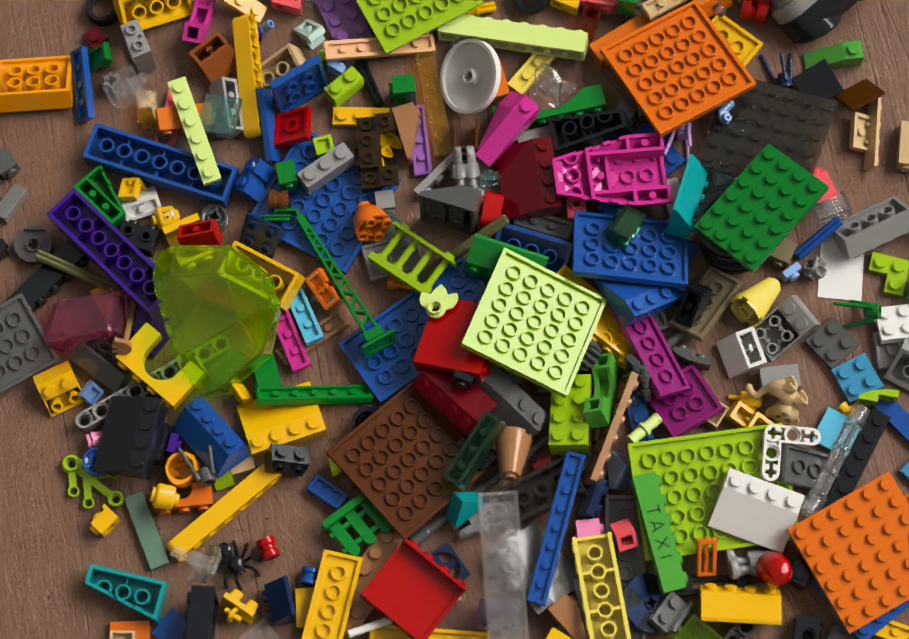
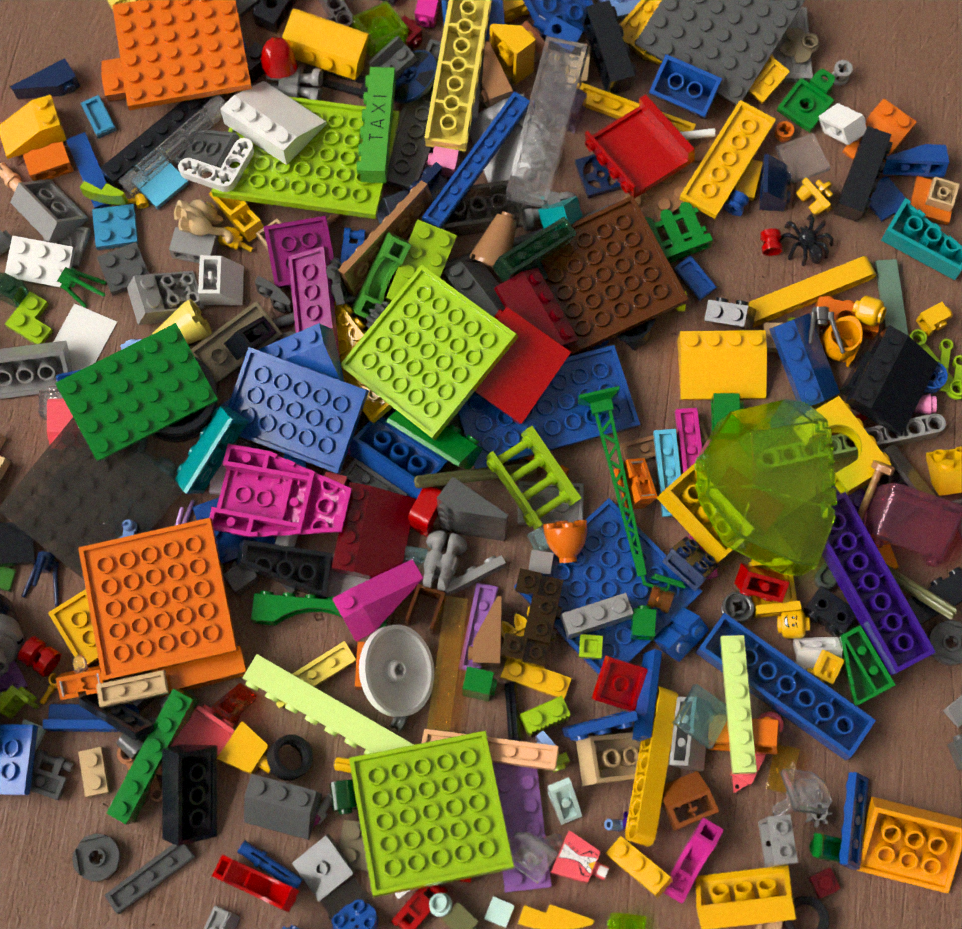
camera: 165 degrees left, 0 degrees up
(91, 392) = (920, 454): medium blue tile -> none
(174, 443) = (842, 372): dark purple plate -> none
(203, 562) = (844, 242): clear piece -> none
(241, 394) = (756, 398): yellow slope -> none
(313, 395) = (683, 373): green tile -> none
(439, 300) = (520, 413): yellowish green plate -> none
(462, 380) = (525, 312): black plate -> none
(540, 462) = (467, 237): dark red plate -> none
(551, 86) = (308, 633): clear piece -> none
(624, 535) = (412, 137): coral brick -> none
(625, 226) = (289, 431): clear green brick -> none
(644, 428) = (351, 234): yellowish green pin -> none
(699, 542) = (342, 99): orange tile -> none
(815, 268) = (102, 340): light grey gear -> none

